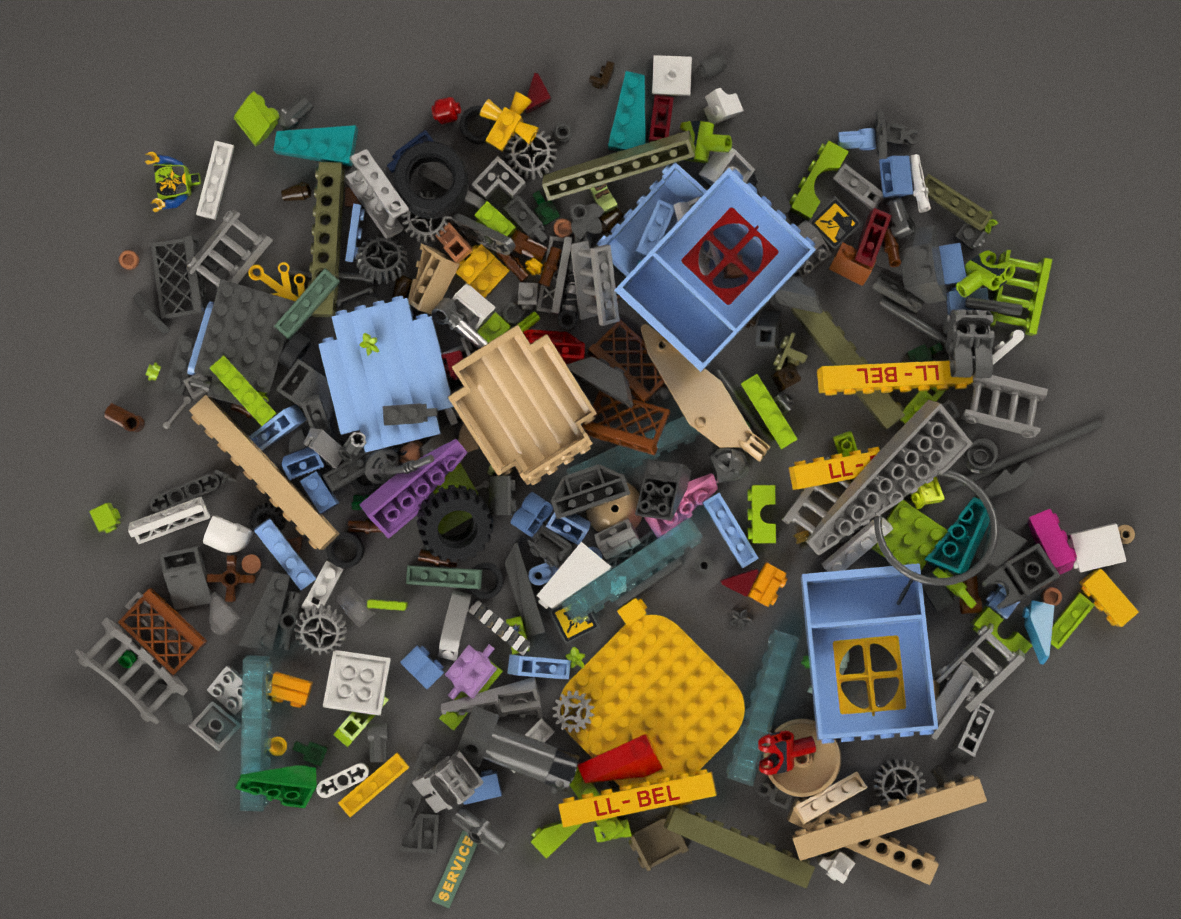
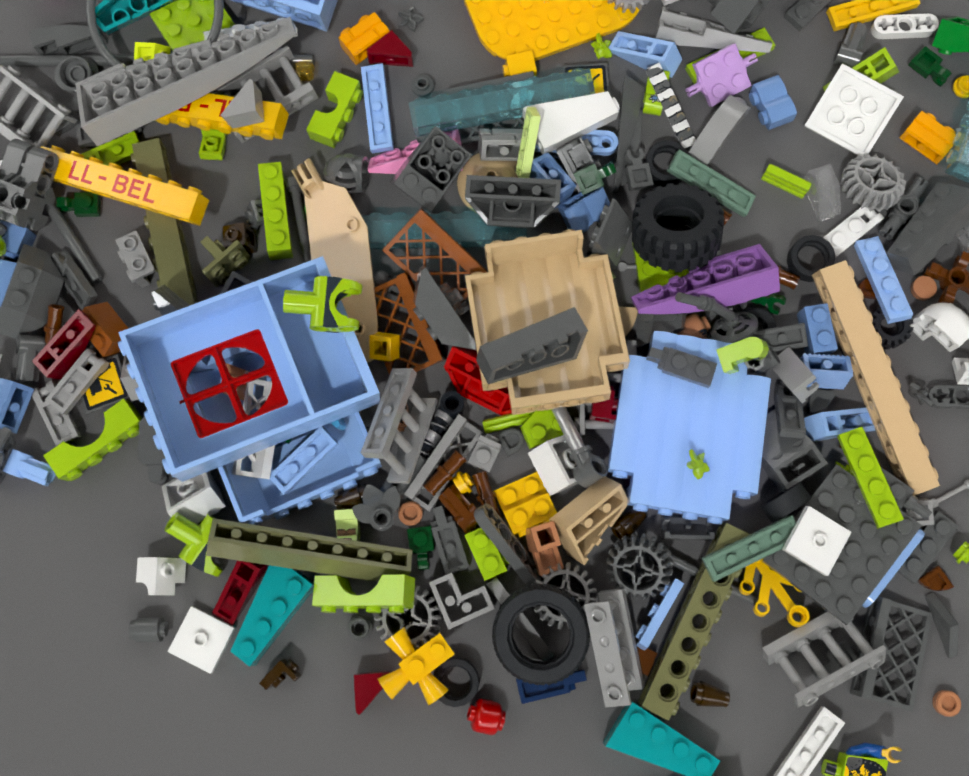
camera: 155 degrees left, 10 degrees down
(166, 343) = (935, 580): none -> reddish brown tile
(264, 327) = (816, 540): none -> white plate
(366, 441) = (741, 352): none -> lime leg
(502, 560) = (637, 174): none -> dark grey plate
(521, 373) = (533, 347): none -> dark grey wedge
(535, 534) = (591, 178): none -> plate
(589, 148) = (390, 593): none -> lime arch
(595, 539) = (528, 142): none -> yellowish green tile
(599, 398) = (454, 298): none -> clear brick
(635, 339) = (384, 346): none -> yellow plate
(682, 333) = (323, 302): none -> lime connector
(821, 472) = (245, 107): none -> light grey slope
(852, 214) = (76, 381): none -> light grey plate
(856, 328) = (136, 258): none -> light grey bracket

